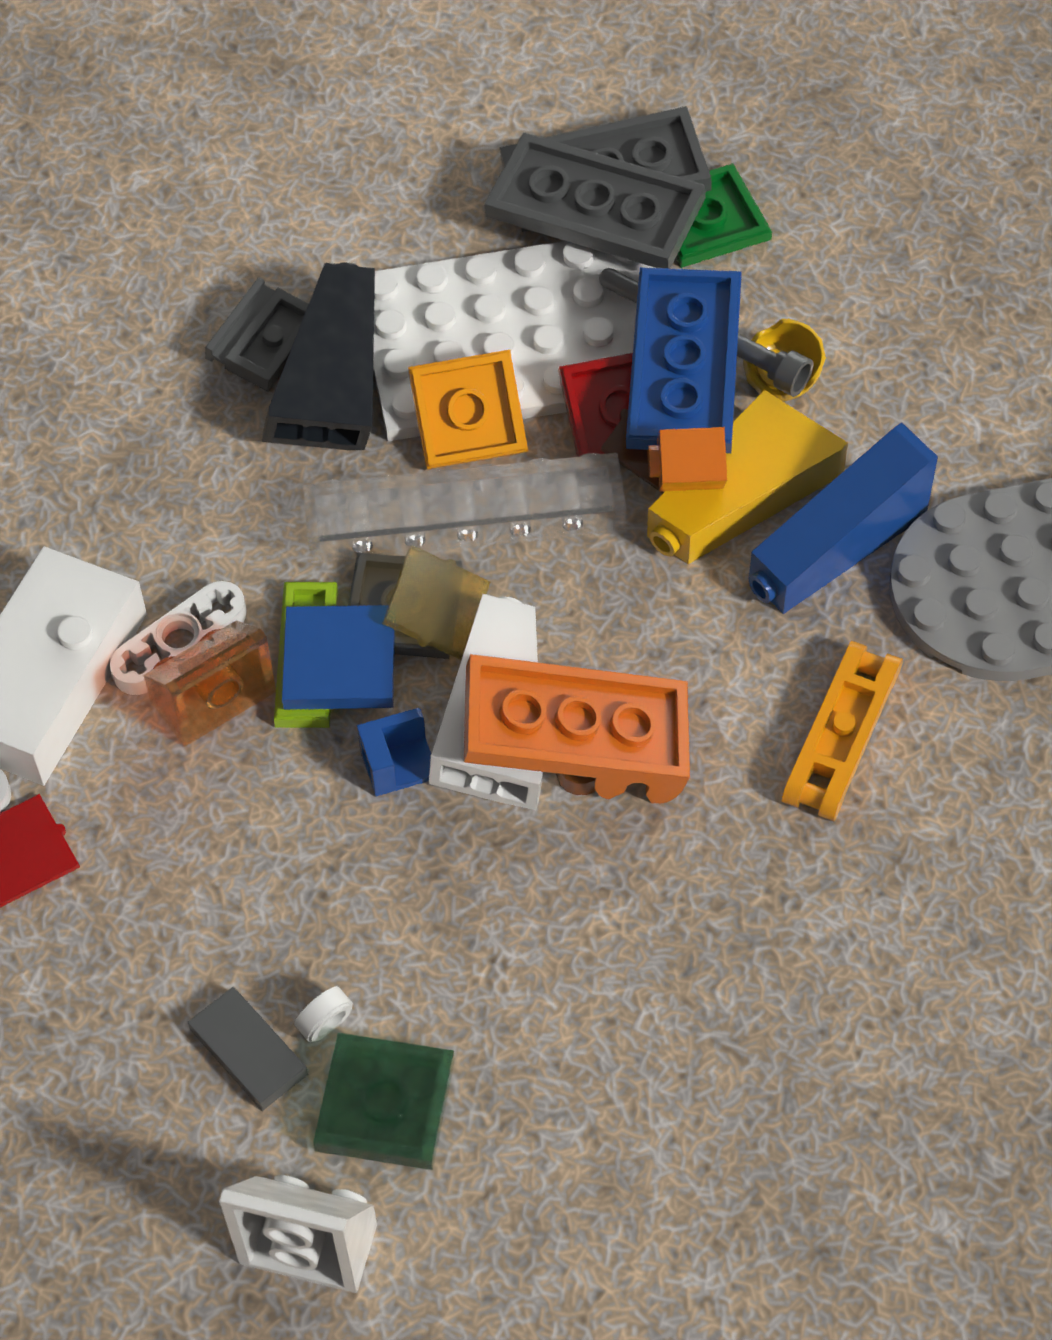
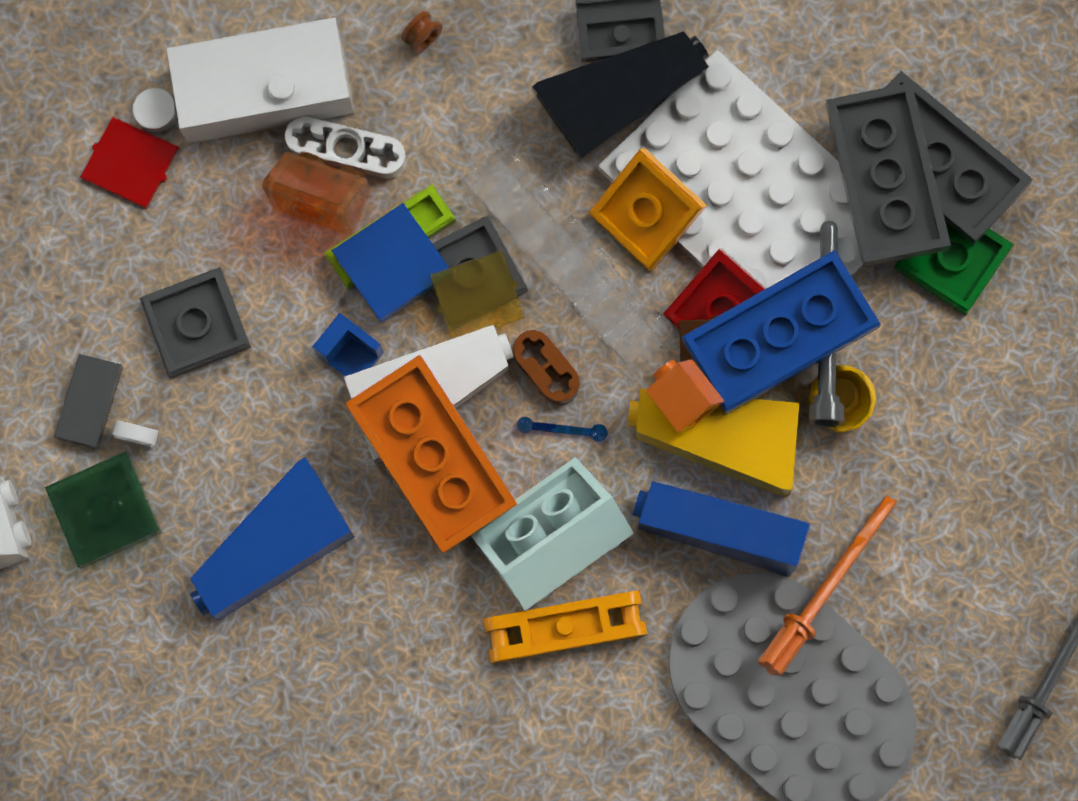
camera: 60 degrees right, 20 degrees up
(120, 499) = (421, 32): none -> dark orange bush
(246, 889) = (195, 322): none -> dark grey tile
(552, 937) = (275, 541): none -> blue slope
(558, 592) = (554, 361): none -> dark orange beam
(657, 591) = (597, 432): none -> clear blue hinge
(739, 677) = (552, 533): none -> light aqua slope
(991, 513) = (798, 628): none -> orange piece

